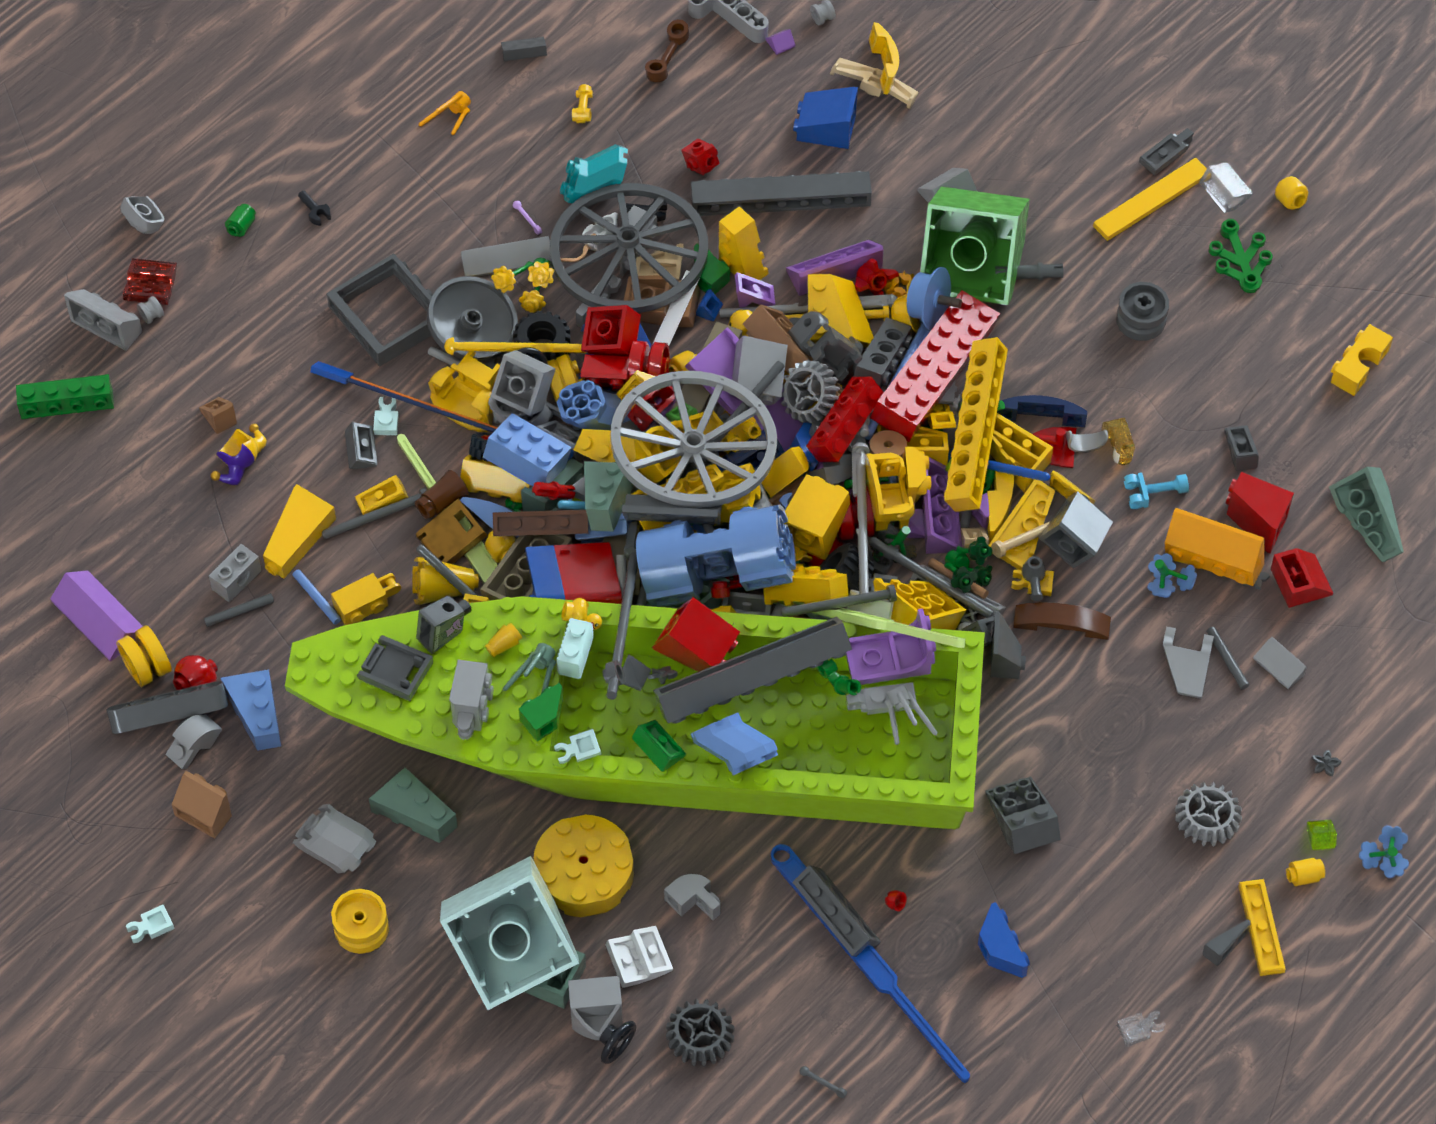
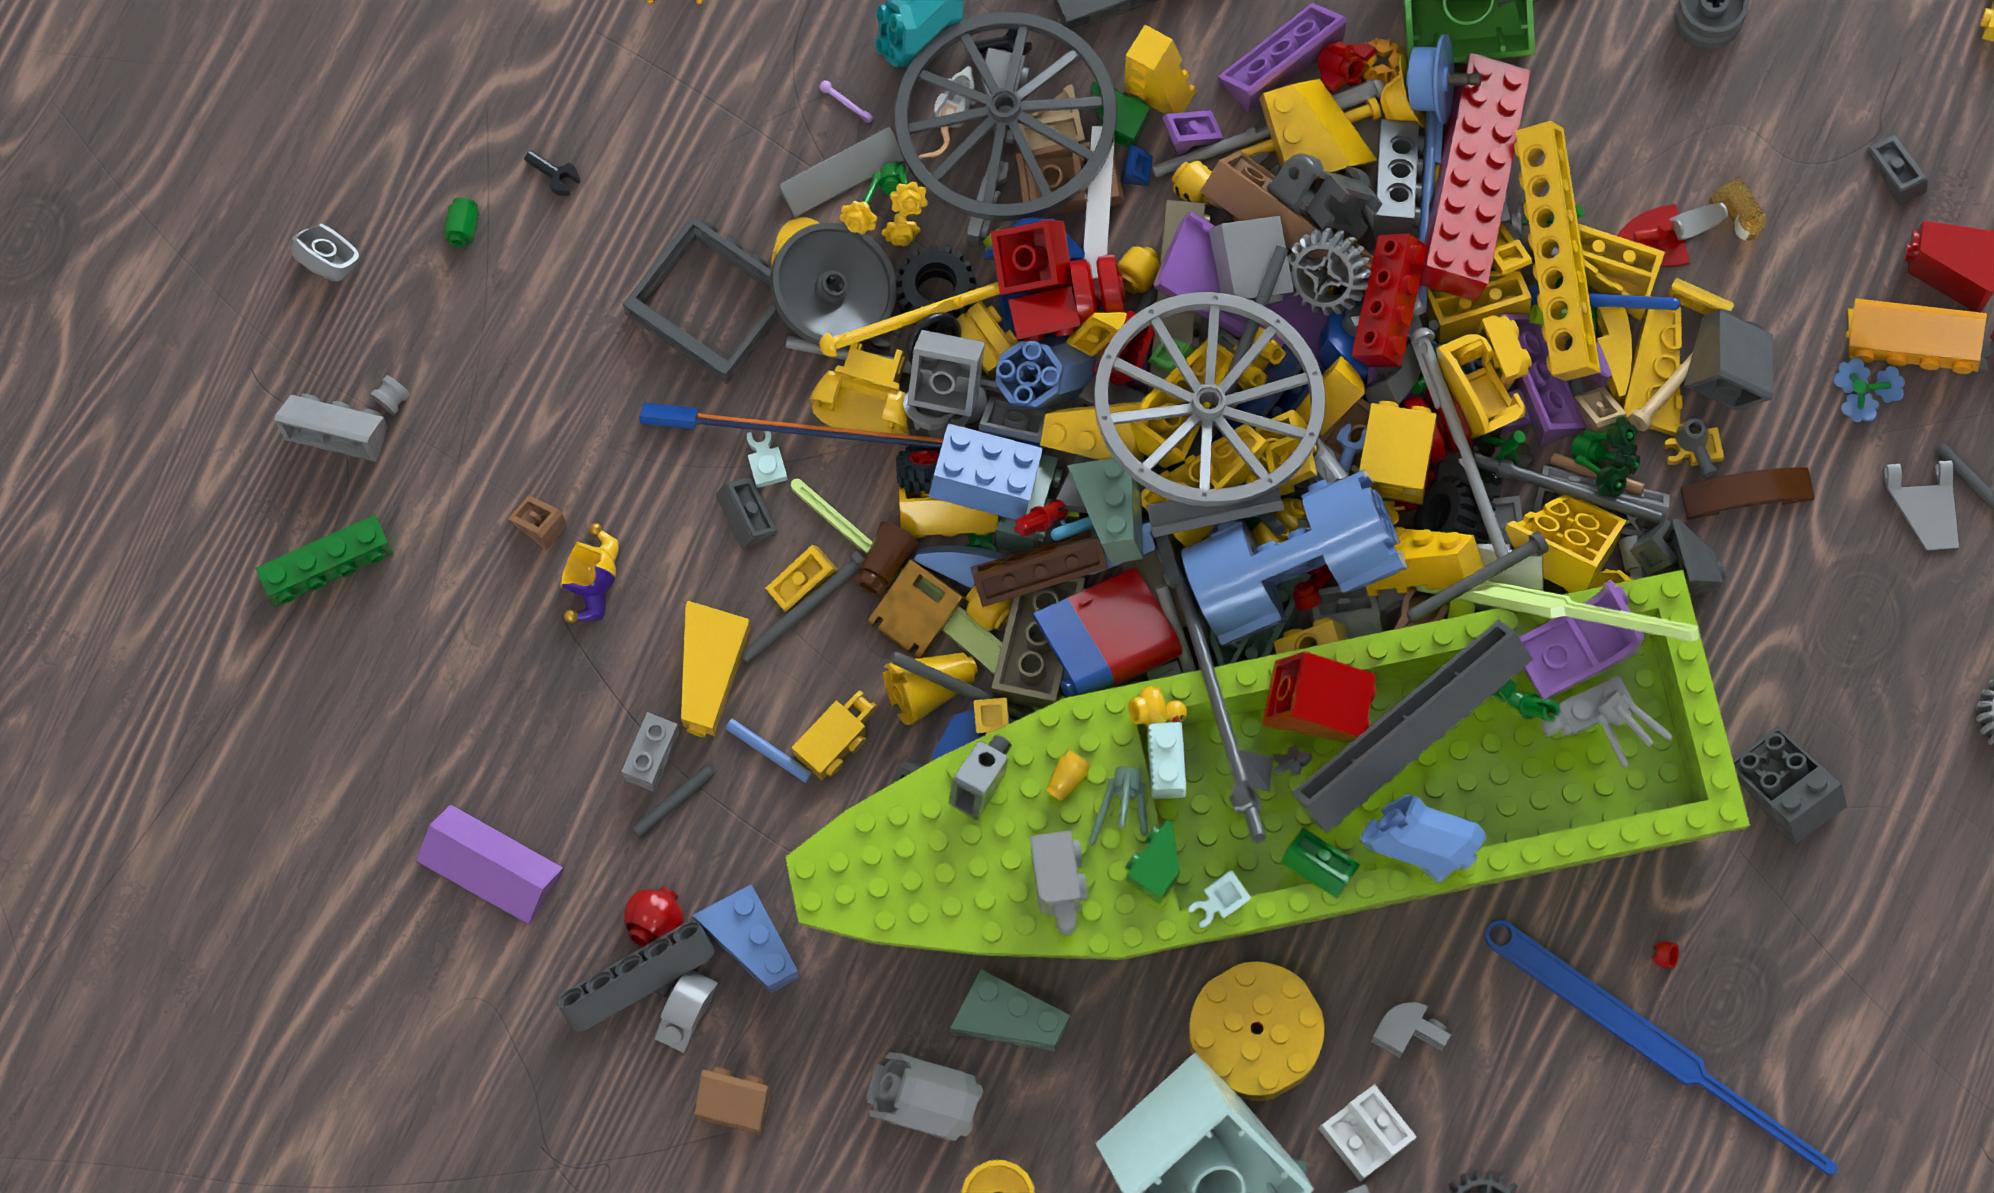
camera: 15 degrees left, 15 degrees up
(144, 656) = (576, 916): yellow wheel -> none
(150, 279) = (371, 349): clear red slope -> none
(392, 665) = (933, 854): dark grey container -> none
(835, 910) = (1597, 994): dark grey fence -> none
(882, 440) = (1452, 305): medium nougat piece -> none
(1001, 945) = (1818, 974): blue slope -> none
(1044, 406) = (1662, 187): dark blue slope -> none
(1142, 500) = (1838, 249): medium azure bar -> none

